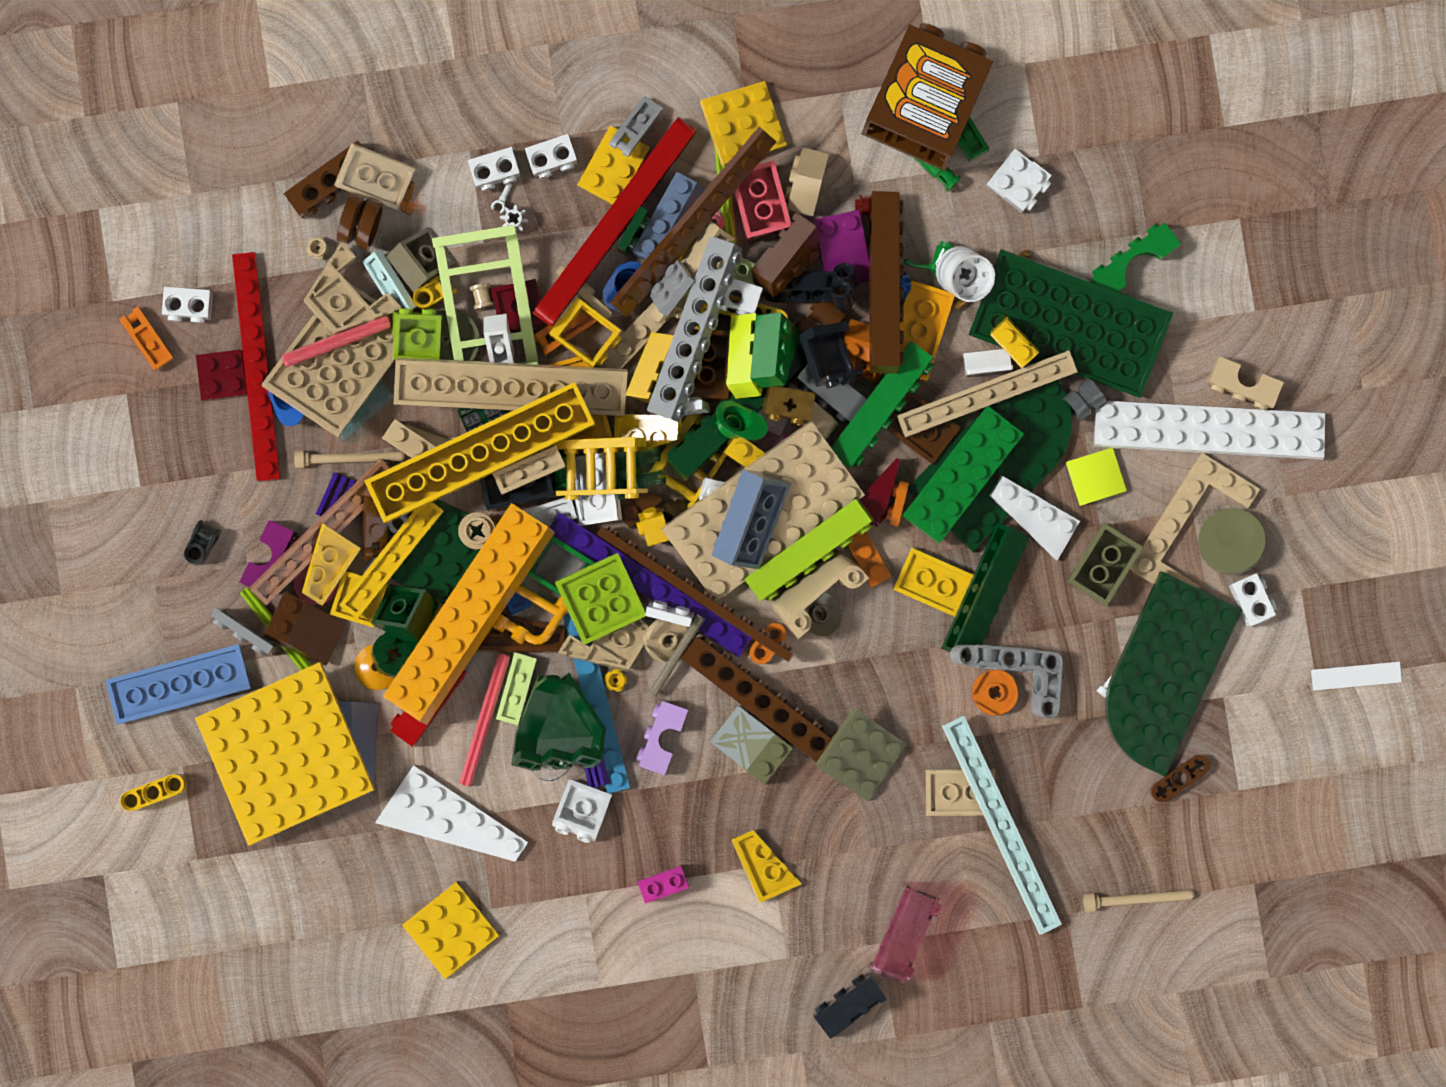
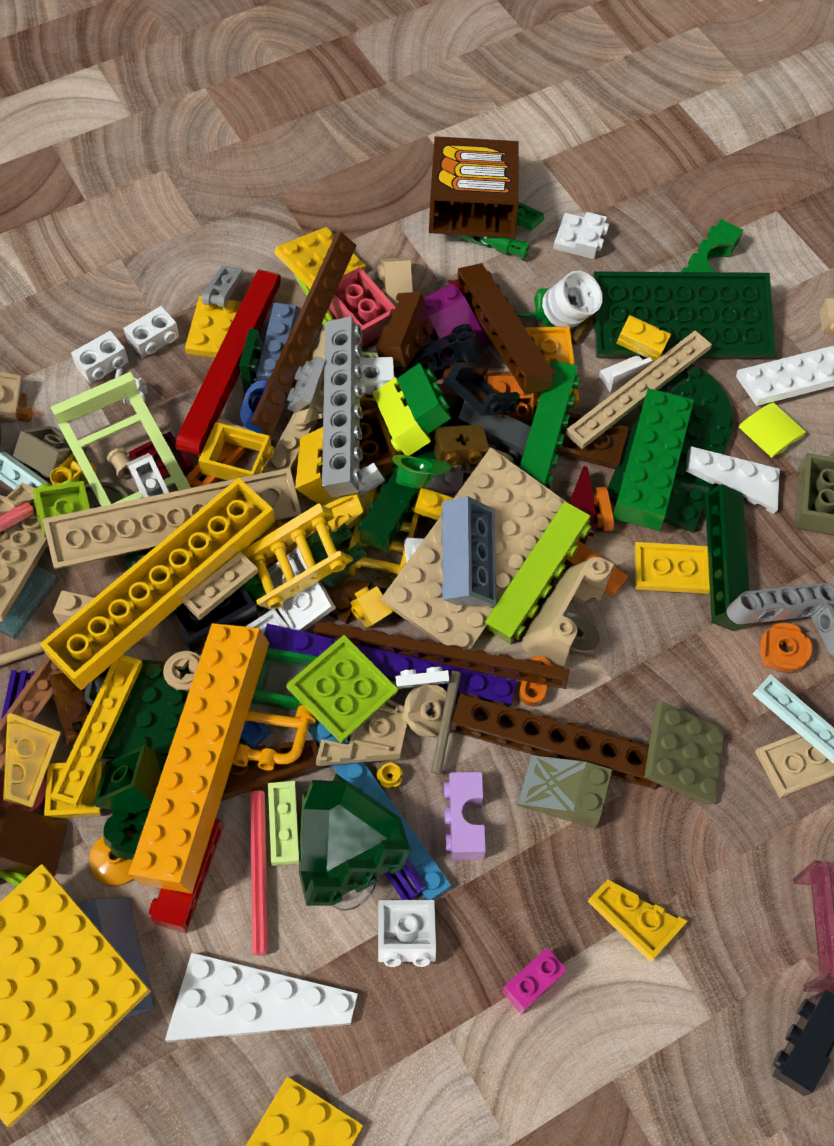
camera: 20 degrees left, 25 degrees down
(1086, 398) = (728, 368): dark grey wheel -> none

